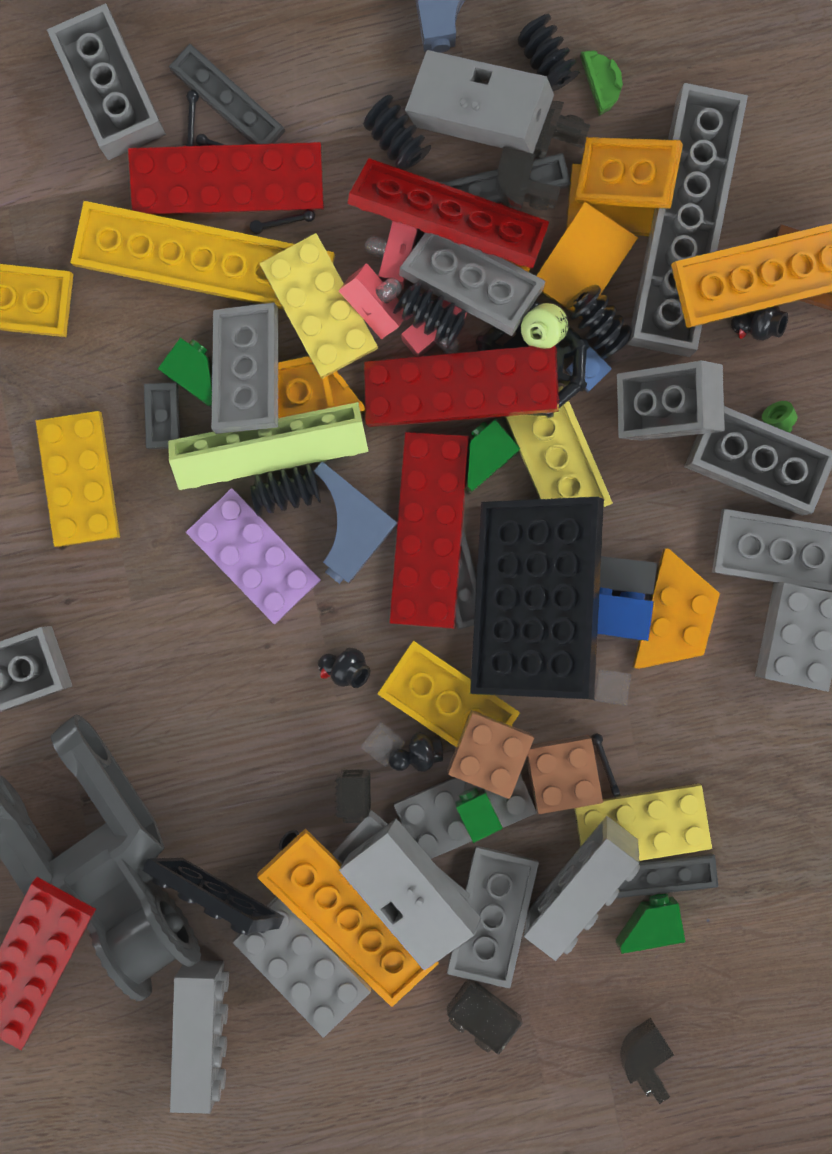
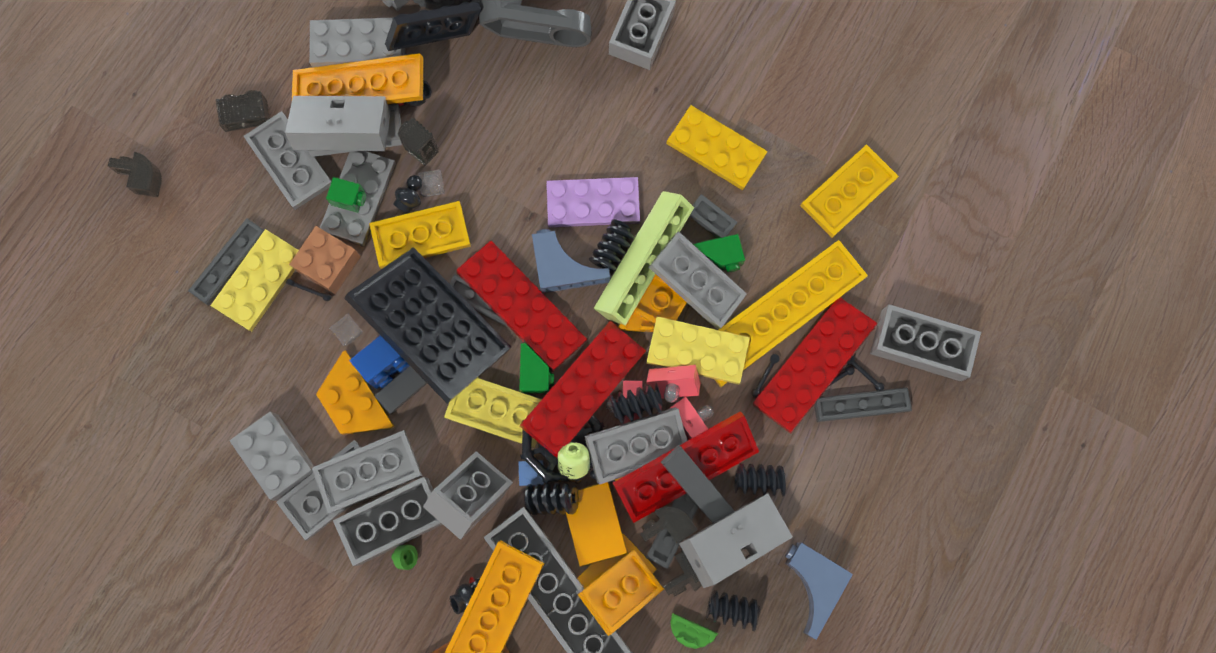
camera: 125 degrees right, 10 degrees down
(345, 669) = (487, 196): black animal -> none
(459, 186) = (696, 485): none -> dark grey tile
(490, 754) = (370, 228): nougat brick -> none
(582, 889) = (255, 213): light grey brick -> none
(652, 925) = (202, 236): green slope -> none
(735, 526) = (366, 472): none -> light grey plate

